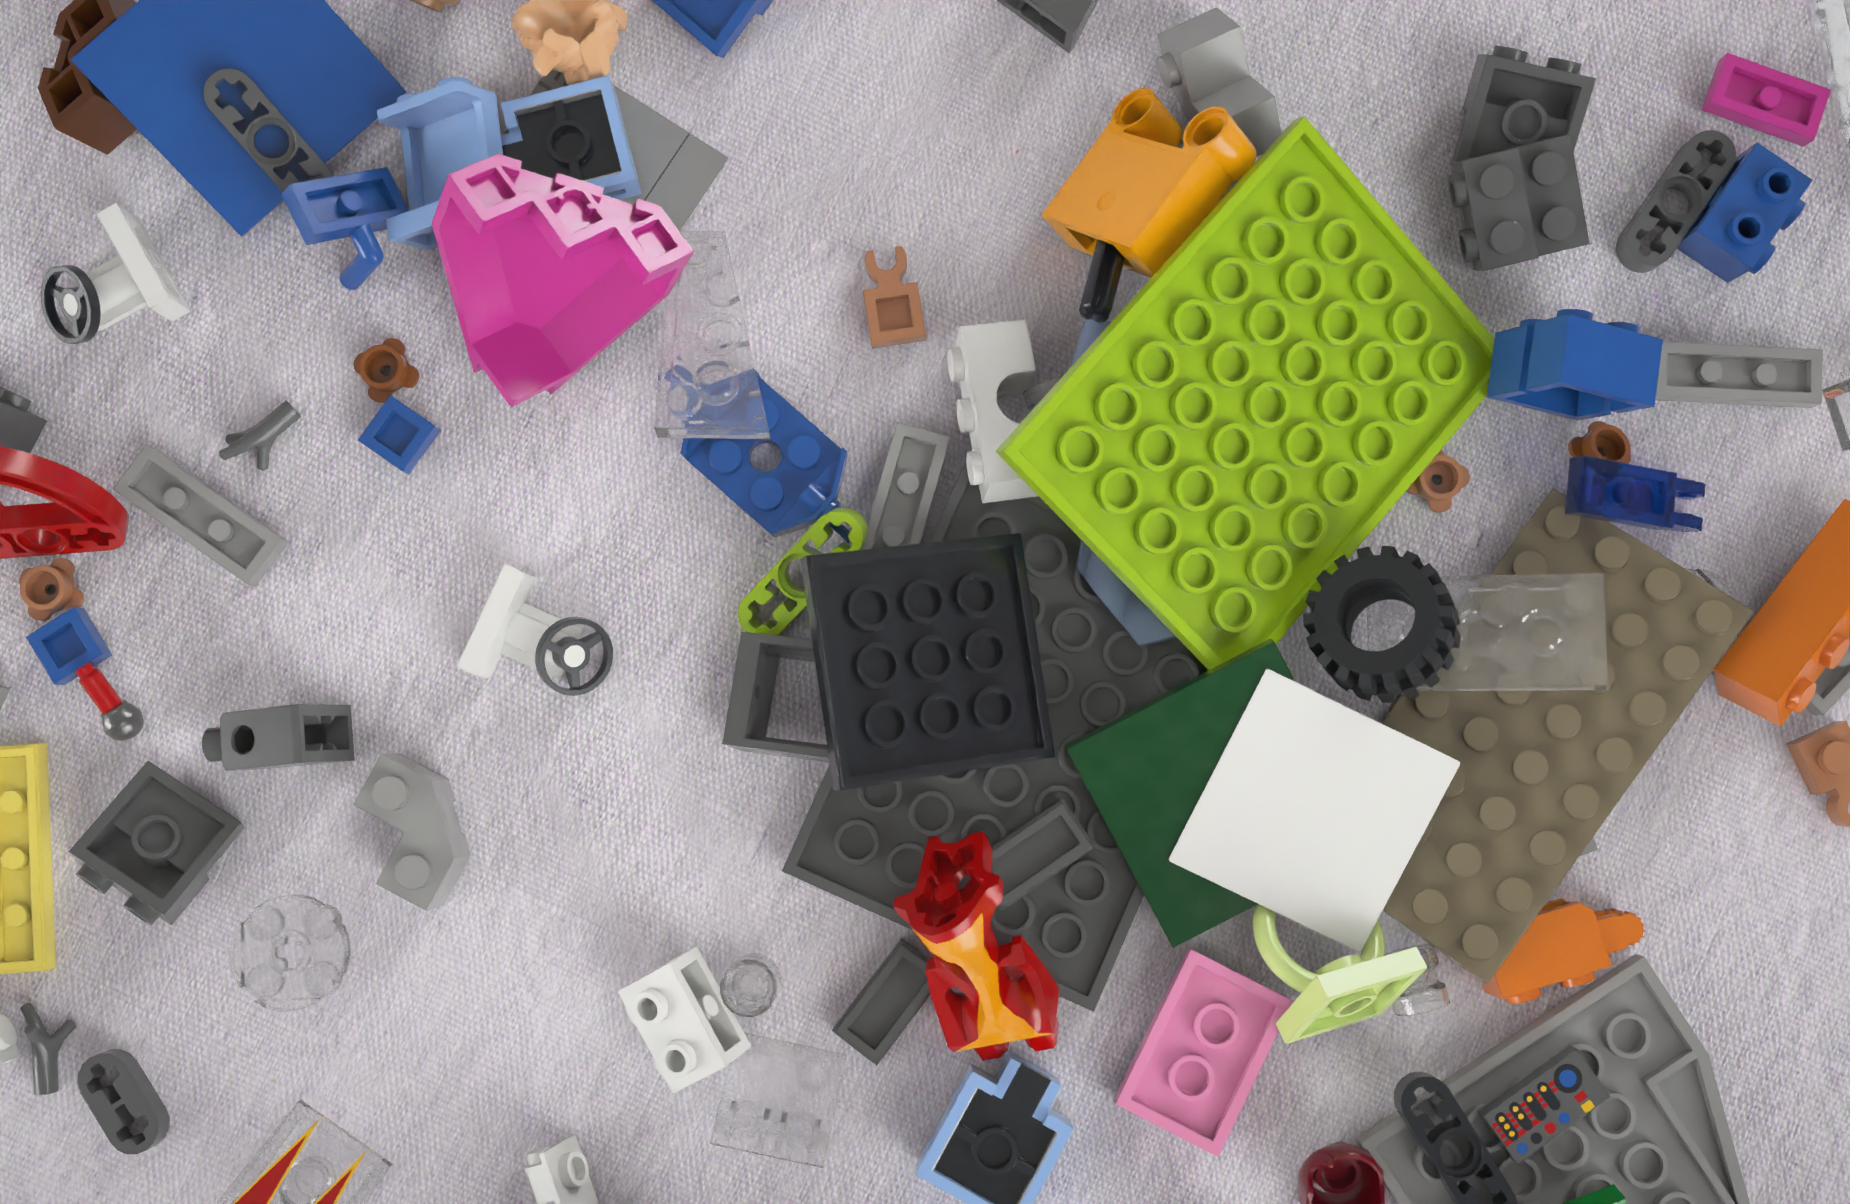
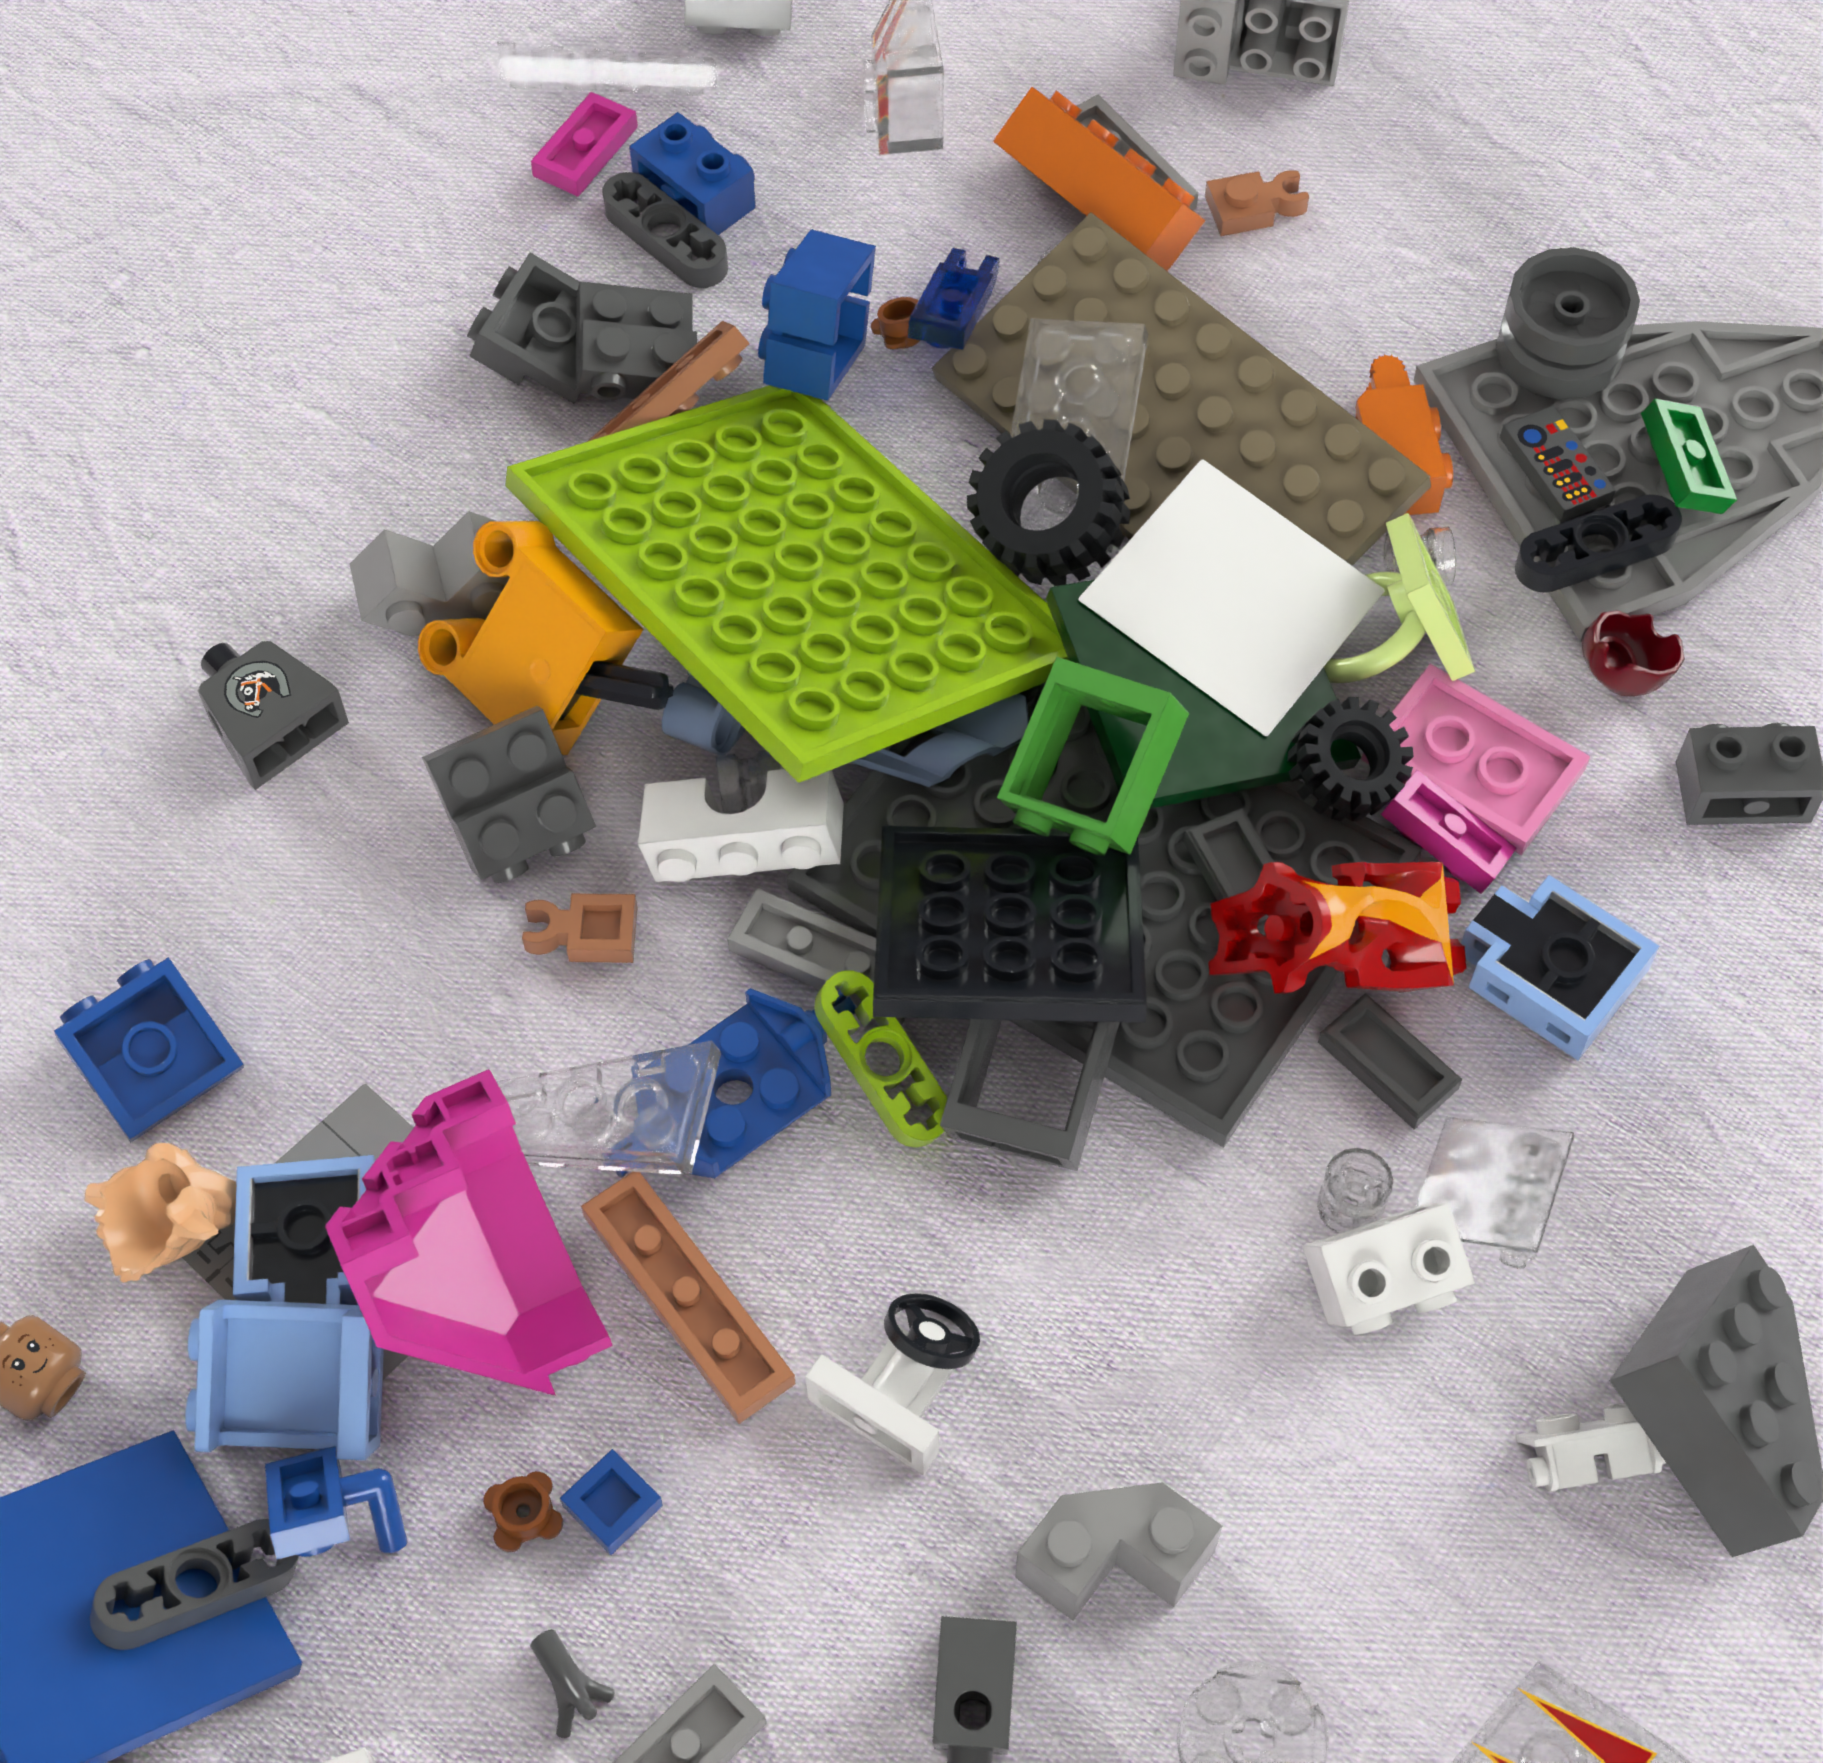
camera: 75 degrees left, 25 degrees down
(574, 458) = (688, 1296): none -> nougat plate
(995, 206) = (510, 795): none -> dark grey plate
(1114, 1033) = (1448, 832): none -> dark pink plate
(1149, 722) = (1046, 734): none -> bright green window
(1156, 971) = (1376, 741): none -> black tyre
(1450, 246) = (675, 389): none -> nougat plate
(1452, 477) = (908, 450): nougat plate -> none
(1709, 1105) = (1567, 323): none -> dark grey wheel
(1740, 375) = (856, 190): light grey plate -> none

